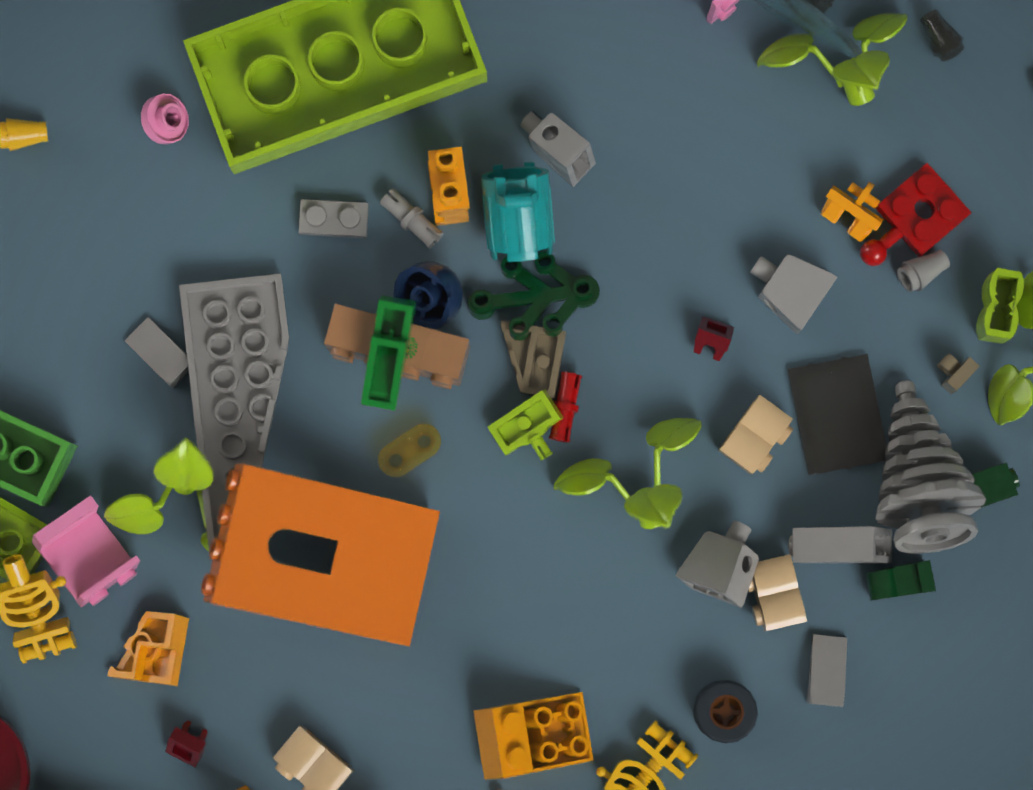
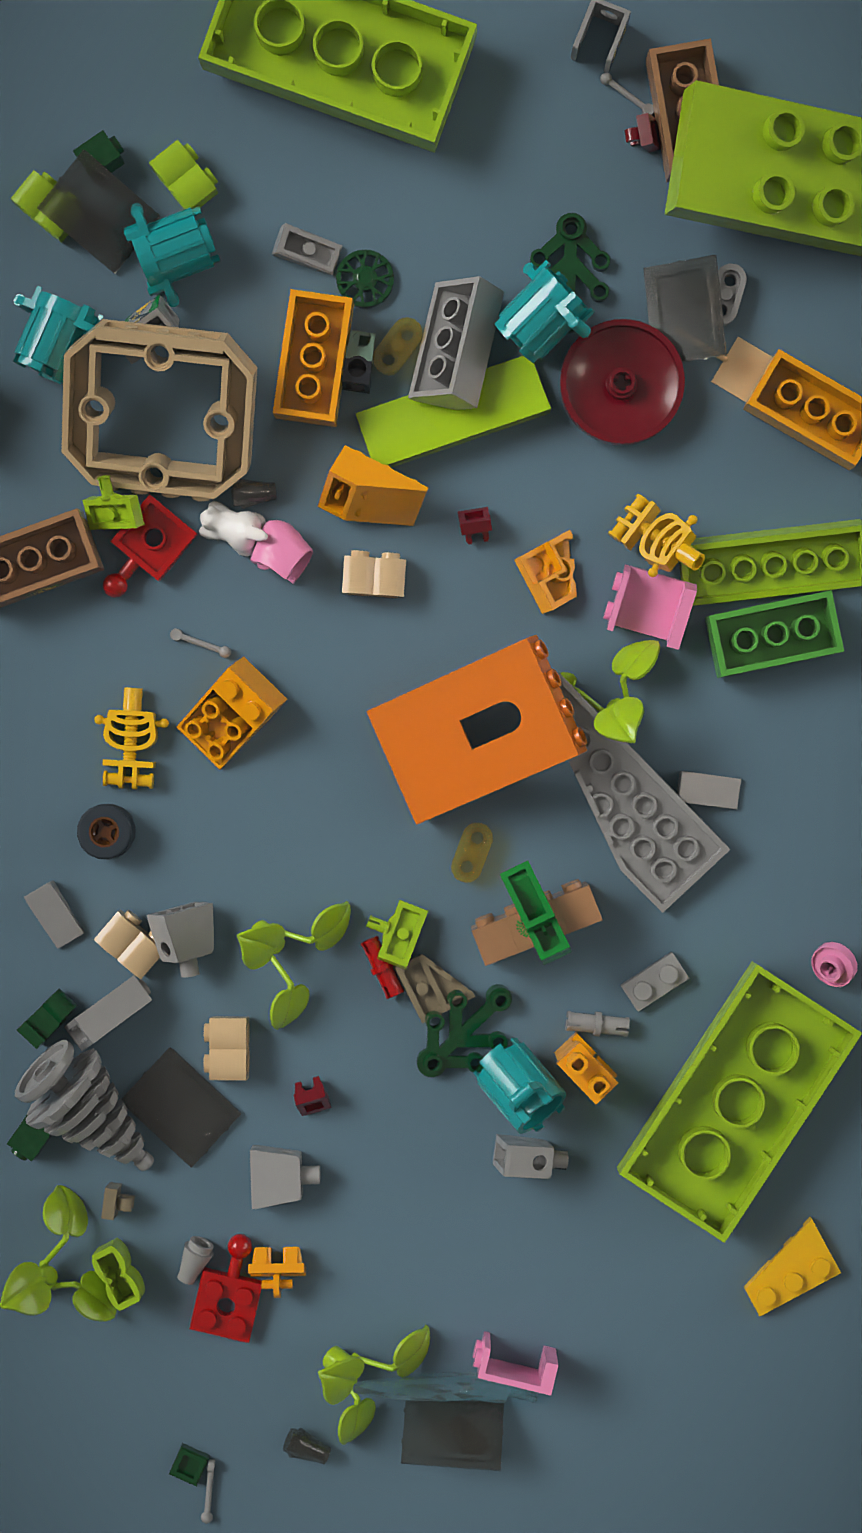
camera: 140 degrees right, 5 degrees up
(434, 289) = (539, 983): dark blue cylinder -> none

